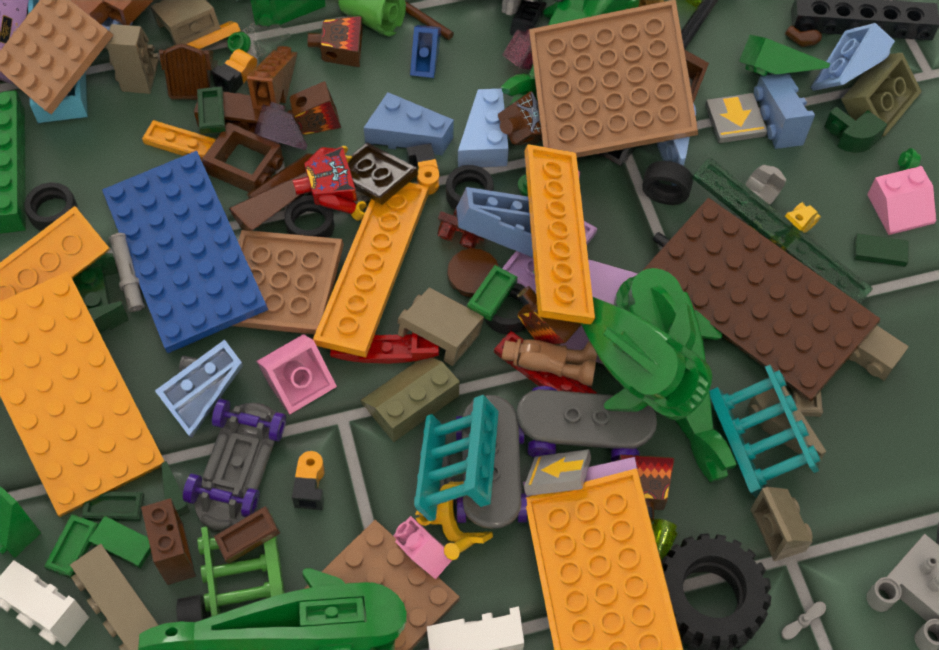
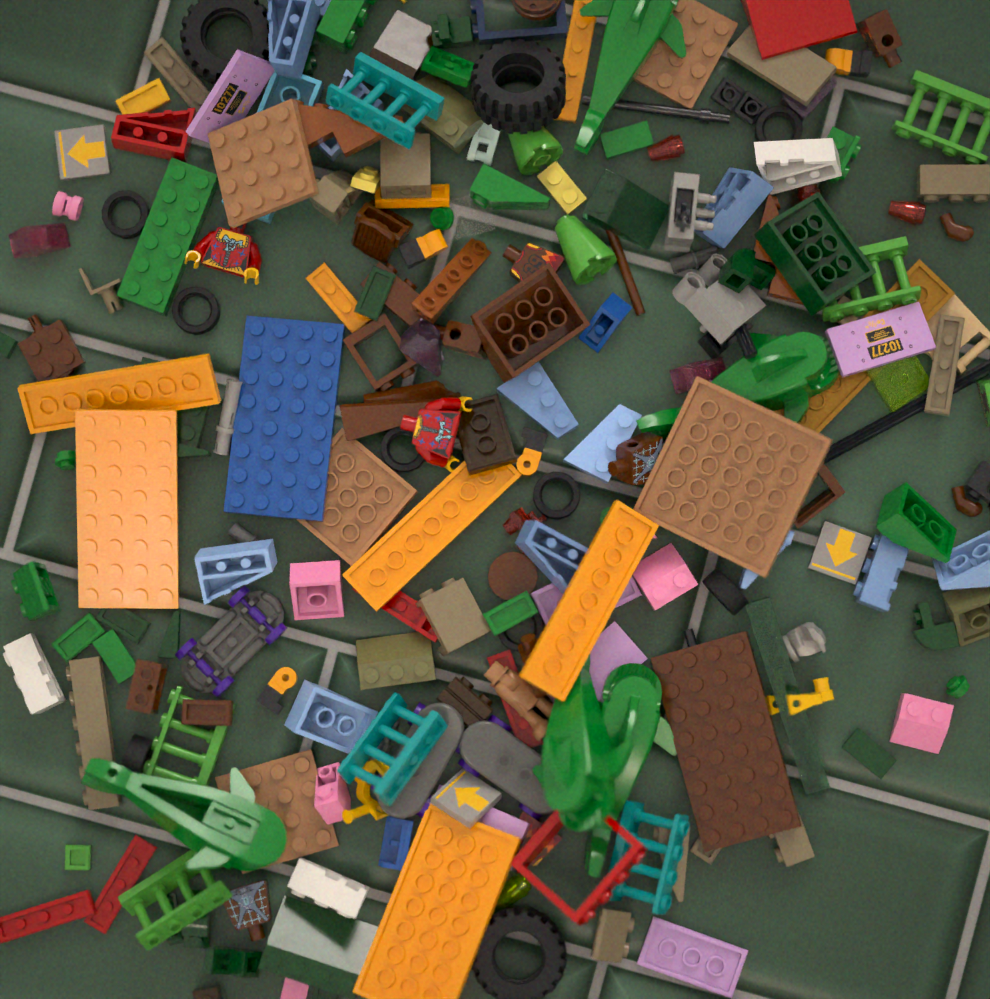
camera: 40 degrees right, 25 degrees up
(58, 149) = (228, 252): none -> torso
(157, 36) = (367, 179): none -> light yellow plate
(360, 66) = (528, 322): none -> reddish brown slope
(374, 478) = (329, 717): none -> light blue slope
(510, 388) = (465, 701): none -> dark brown brick
(516, 560) = (395, 842): none -> blue hinge
(609, 203) = (663, 576): none -> bright pink slope
(704, 502) = (603, 892): none -> red window
(869, 506) = (692, 957): none -> lavender tile

